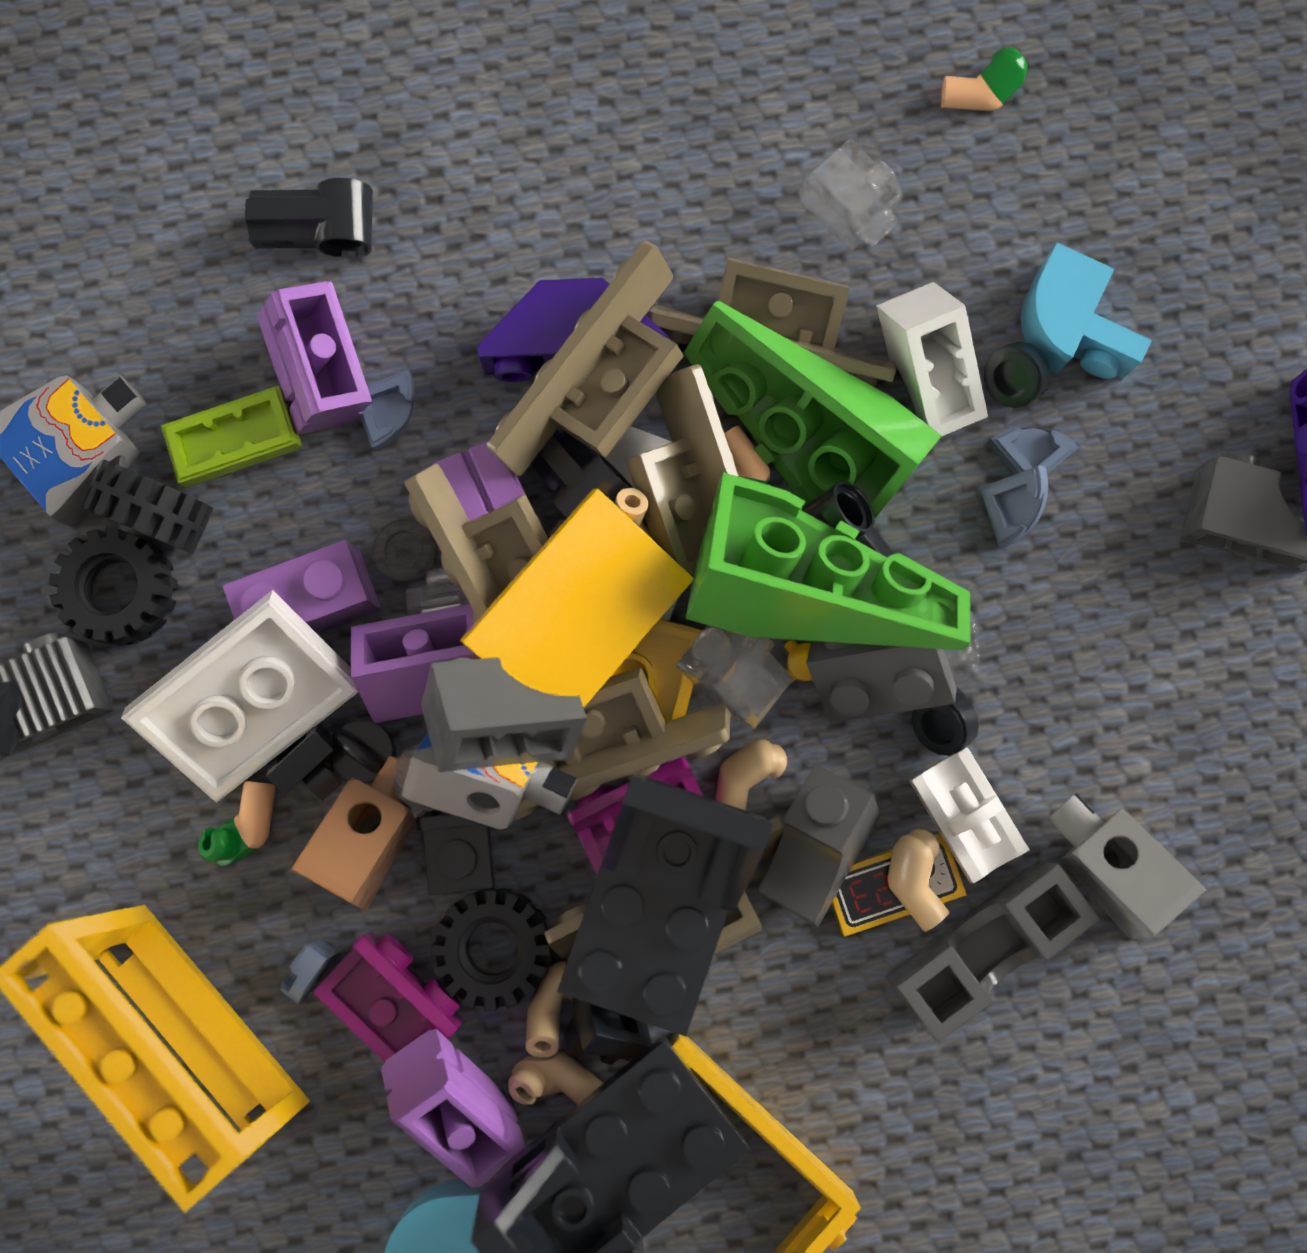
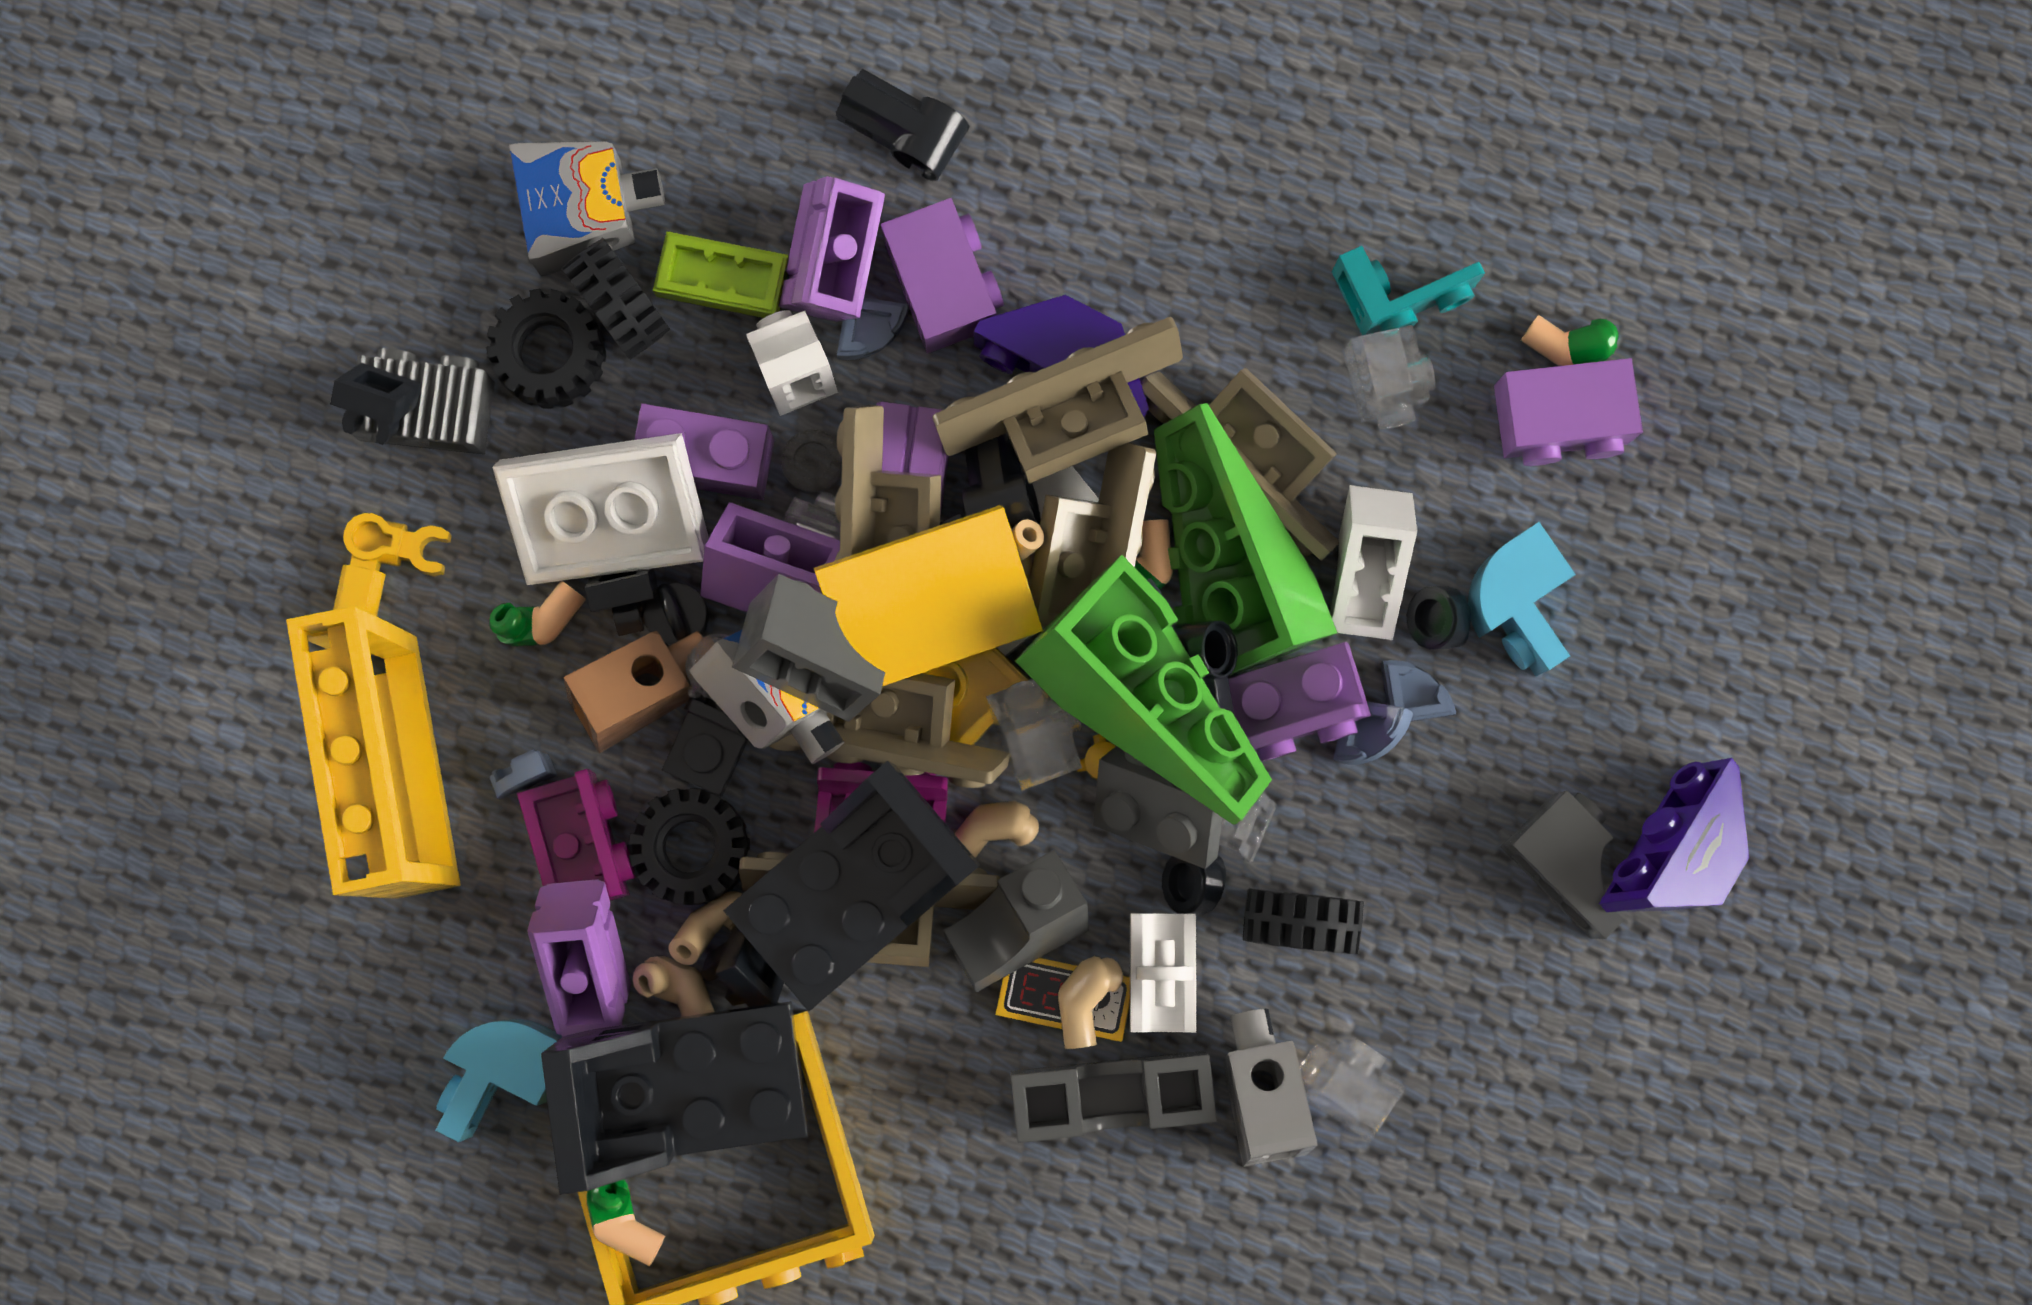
camera: 25 degrees right, 0 degrees up
(59, 843) = (386, 542): none -> yellow bar
(335, 473) = (791, 360): none -> white arch
(420, 325) = (940, 273): none -> medium lavender brick
(793, 138) = (1367, 286): none -> teal bracket
(945, 511) = (1299, 699): none -> medium lavender bracket
(1020, 138) = (1568, 410): none -> medium lavender brick
(1063, 699) = (1303, 921): none -> black tyre
(1188, 816) = (1350, 1085): none -> clear brick

